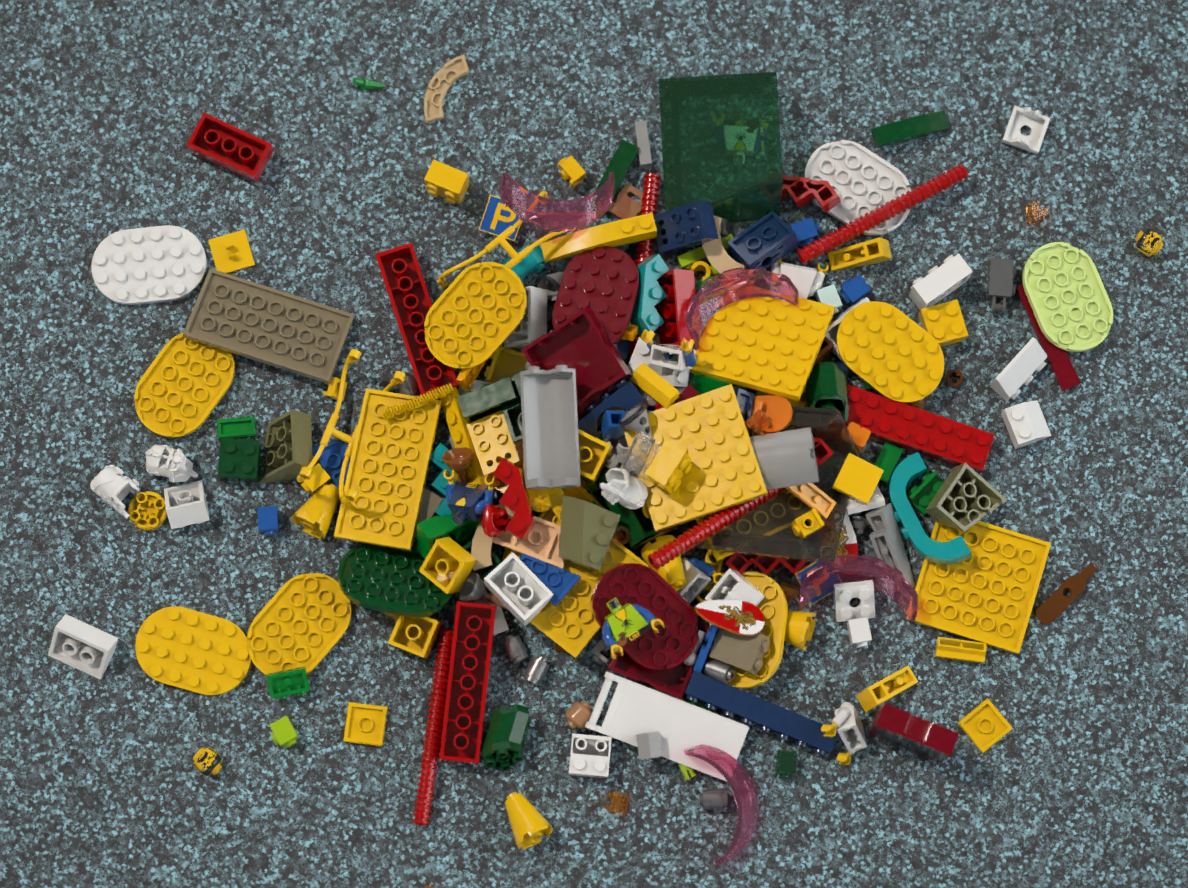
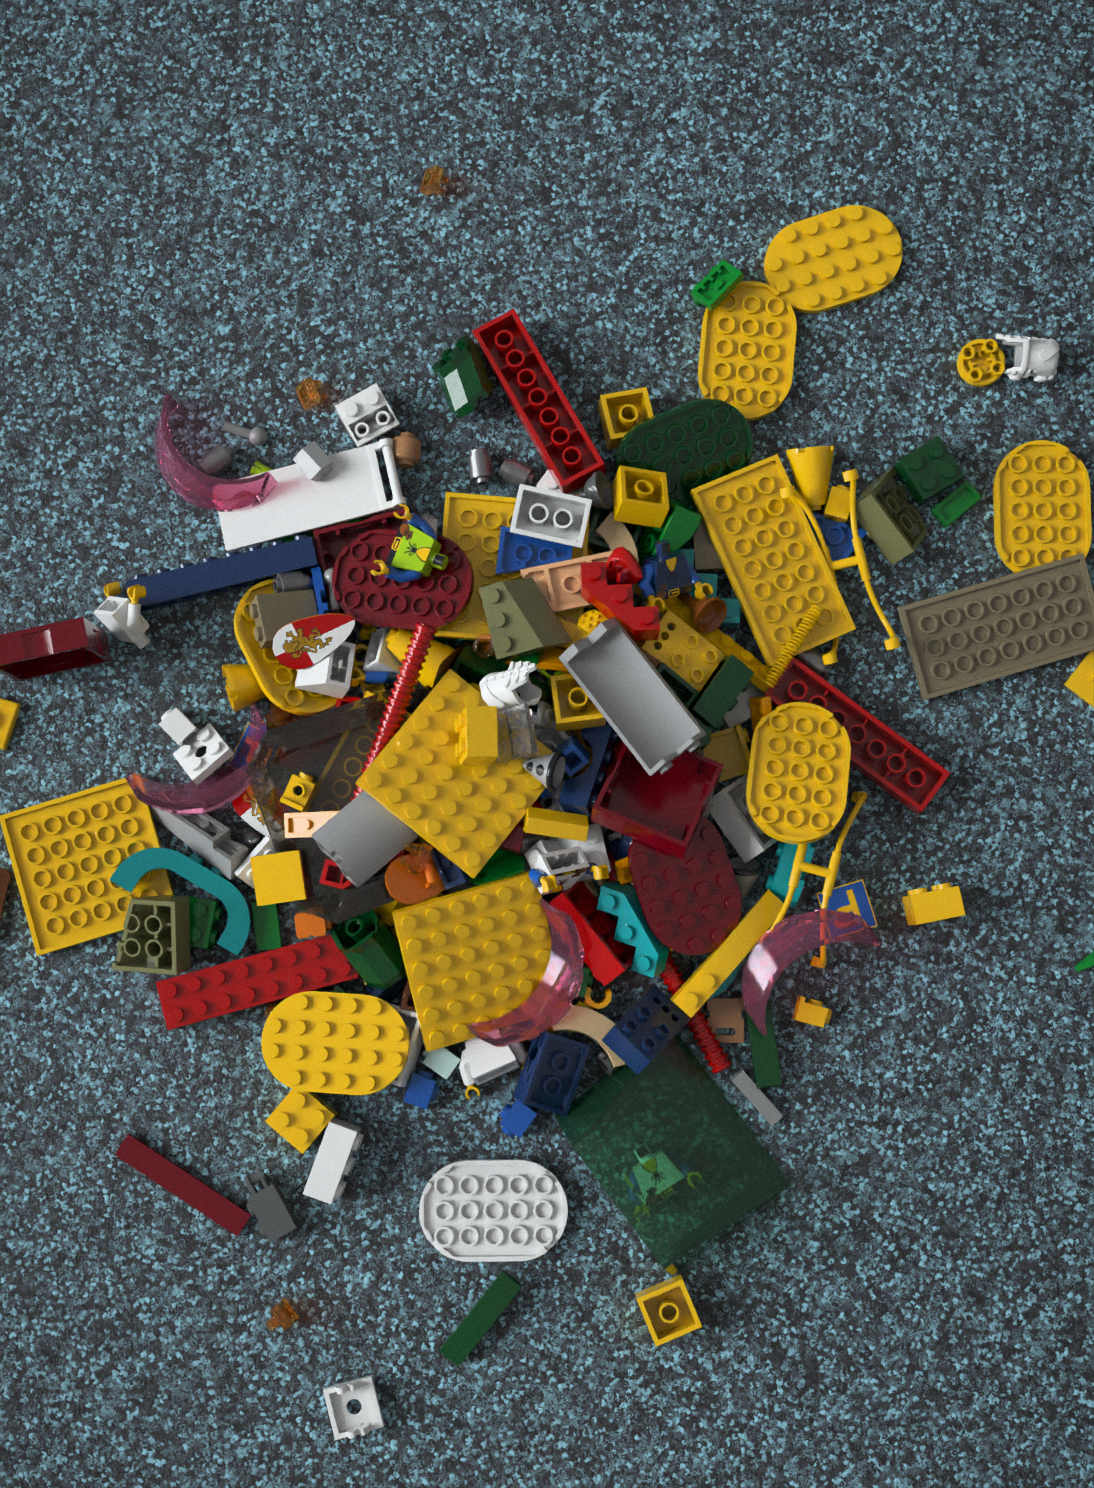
camera: 150 degrees right, 5 degrees up
(82, 646) = (944, 189): white slope -> none
(169, 463) = (995, 418): white helmet -> none
(186, 504) = (948, 391): white slope -> none
(207, 761) = (740, 163): head -> none
(268, 520) = (854, 432): blue brick -> none
(284, 732) = (686, 239): lime brick -> none
(333, 388) = (888, 607): yellow tile -> none
(365, 724) = (613, 303): yellow tile -> none
(433, 730) = (538, 333): red piece -> none
(439, 86) = (1017, 1011): tan tile -> none
(526, 821) = (389, 313): yellow cone -> none
(673, 800) = (257, 435): none -> light grey bar
(686, 260) = (614, 1012): lime piece -> none
(785, 764) = (167, 543): clear green brick -> none
(789, 55) = (668, 1310): none -> yellow brick
(805, 190) = (547, 1162): red brick -> none
(860, 254) = (441, 1134): yellow slope -> none
(883, 213) = (444, 1198): red piece -> none
(886, 688) = (112, 687): yellow slope -> none
(958, 374) = (252, 1074): reddish brown bush -> none
(960, 650) = (62, 779): yellow piece -> none
(1020, 370) = (187, 1122): white slope -> none
(1025, 423) = (144, 1068): white slope -> none
(1067, 297) = (187, 1242): yellowish green plate -> none
(1148, 242) = (137, 1368): head -> none

